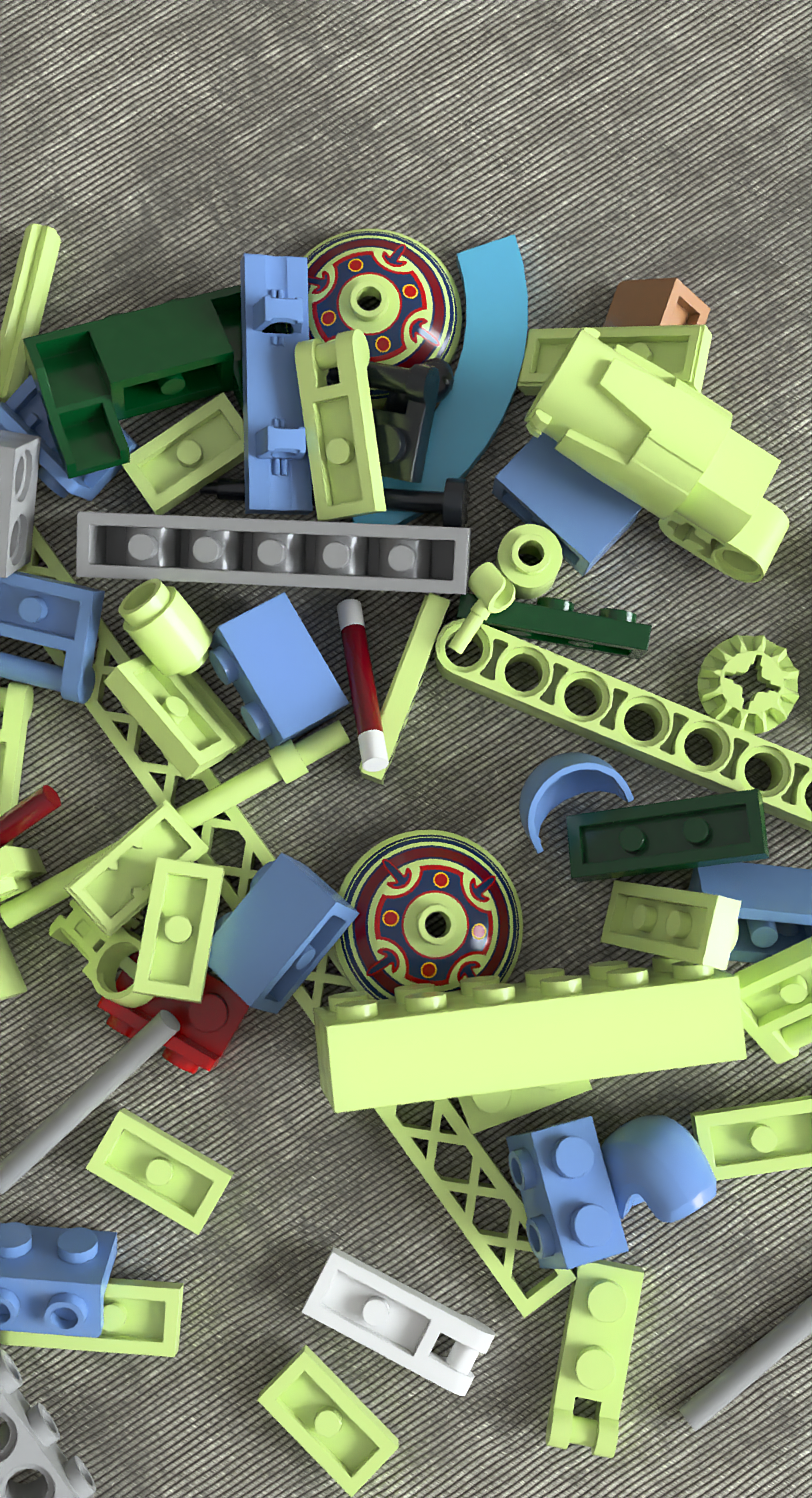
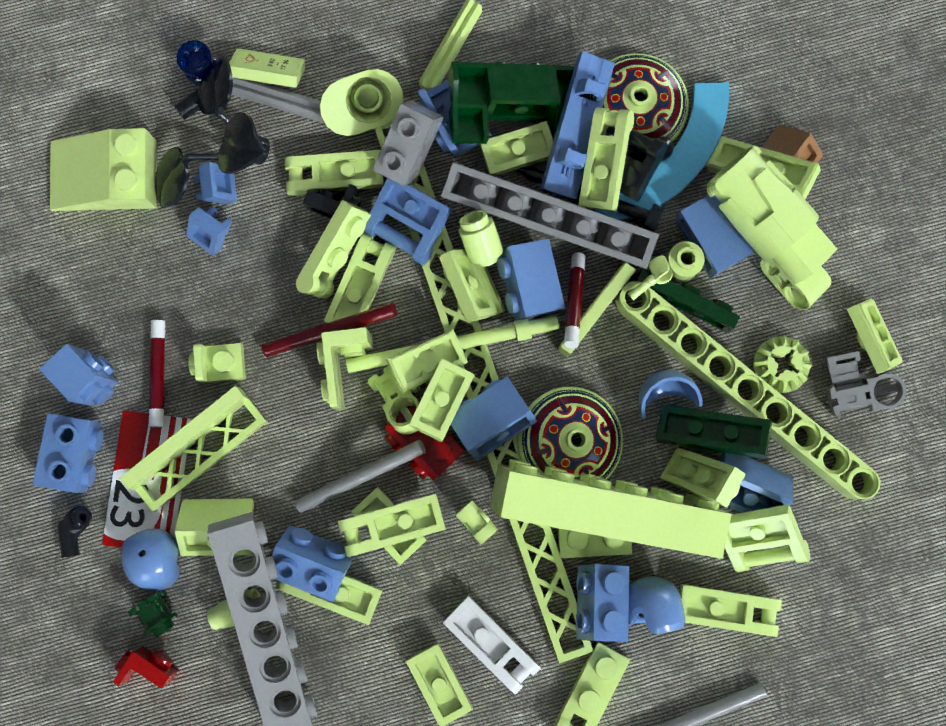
camera: 15 degrees right, 0 degrees up
(163, 1170) = (393, 525): none -> yellowish green plate
(303, 1123) = (476, 522): none -> yellowish green plate

